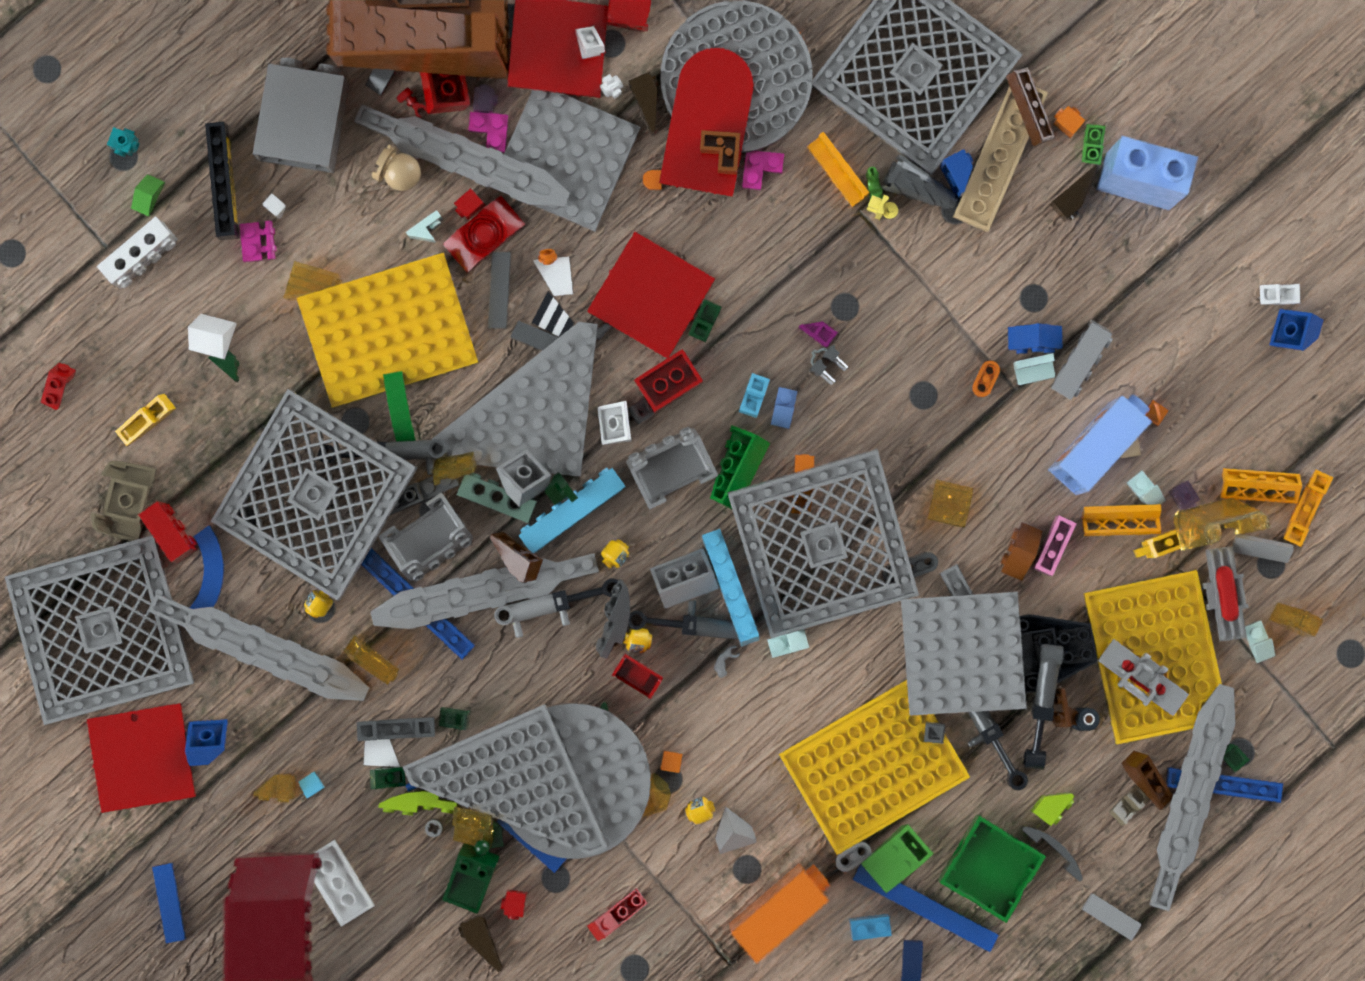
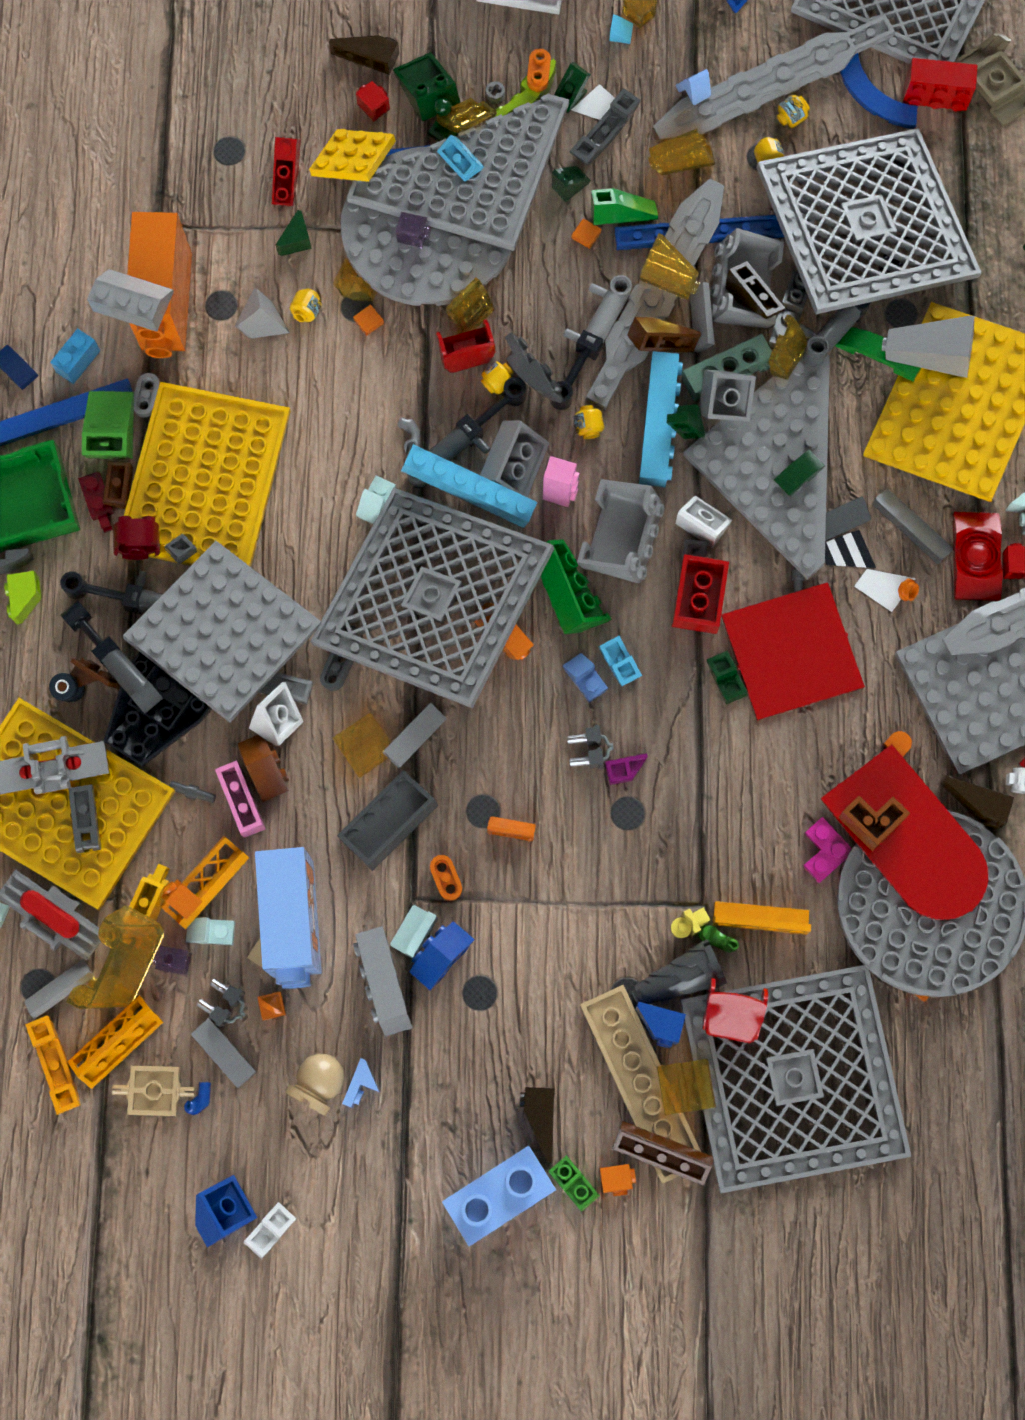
camera: 135 degrees right, 10 degrees down
(272, 615) = (793, 111): none -> head
(312, 695) = (696, 86): none -> light blue slope
(371, 372) = (933, 345): none -> light grey slope
(397, 808) = (538, 68): none -> orange plate
(433, 523) = (752, 291): none -> dark brown slope
(445, 665) = (617, 206): none -> green slope
(465, 592) = (669, 270): none -> clear yellow slope
(475, 546) = (702, 317): none -> light grey tile
(482, 674) = (586, 233): none -> orange tile
(512, 797) = (460, 158): none -> medium azure slope
(534, 387) = (799, 472): none -> dark green slope
(570, 875) = (352, 155): none -> yellow plate
(592, 780) = (412, 230): none -> clear purple brick
(608, 698) = (470, 307): none -> clear yellow slope
(657, 863) = (294, 237): none -> dark green slope
(677, 530) = (560, 482): none -> bright pink brick
(816, 903) = (130, 299): none -> light grey slope
(916, 131) = (734, 1015): none -> piece
(916, 478) = (414, 735): none -> light grey tile
(919, 367) = (511, 828): none -> orange slope
(928, 816) = (118, 483): none -> reddish brown slope
(948, 821) = (93, 491): none -> dark red plate
(956, 763) = (136, 537): none -> dark red brick
(980, 126) = (686, 1087): none -> clear yellow slope
(983, 447) = (387, 820): none -> dark grey slope
(984, 569) = (276, 716): none -> white slope
(1074, 581) = (193, 792): none -> dark grey bar
(1147, 521) = (181, 898): none -> orange brick
(1148, 319) = (362, 1077): none -> light blue slope
(1152, 628) = (84, 818): none -> dark grey plate
(1172, 440) = (220, 1015): none -> dark grey piece
(1176, 341) = (318, 1081): none -> tan tile
(1207, 416) = (223, 1053): none -> light grey tile
(1248, 403) = (201, 1101): none -> blue arm
(1267, 435) = (153, 1090): none -> tan plate

